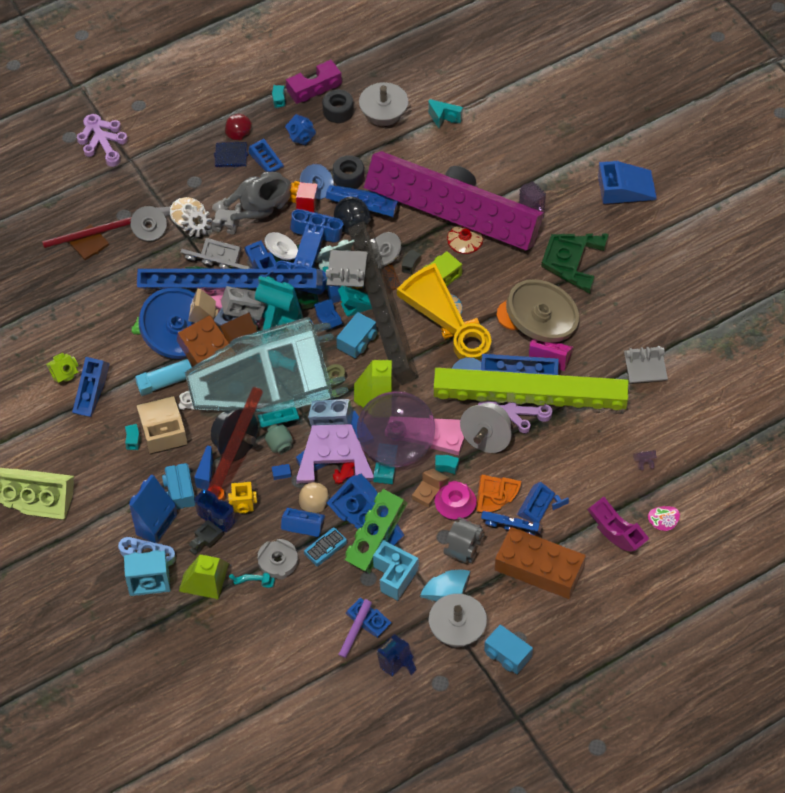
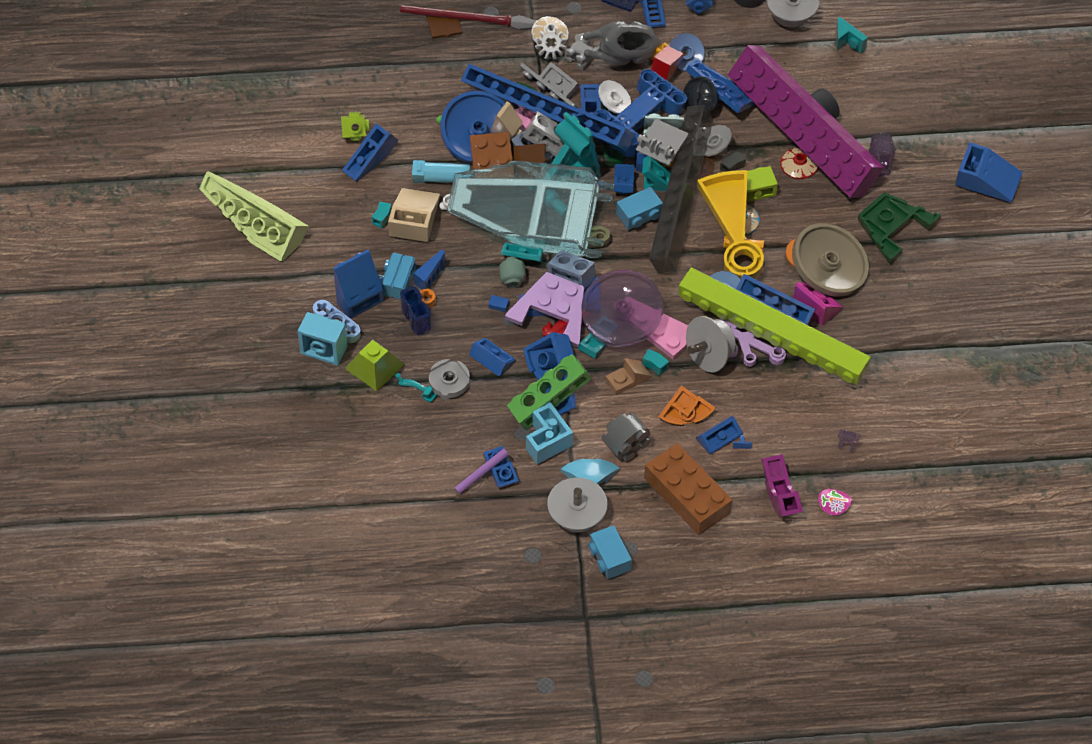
camera: 25 degrees right, 0 degrees up
(148, 215) = (503, 20): light grey dish -> none
(205, 535) = (396, 329): pearl dark grey plate -> none
(224, 427) = (472, 249): black piece -> none
(235, 440) = (466, 254): clear red axle -> none
(242, 497) = (447, 309): yellow brick -> none
(313, 497) = (514, 338): tan hair -> none
(325, 546) = (499, 387): tile -> none
(348, 164) = (725, 47): black tyre -> none
(373, 382) = (630, 256): lime slope -> none
(394, 655) = (502, 511): clear blue piece -> none
(455, 500) = (643, 398): dark pink piece -> none
(493, 519) = (696, 452): blue wing -> none
(645, 364) = (903, 353): light grey hinge -> none

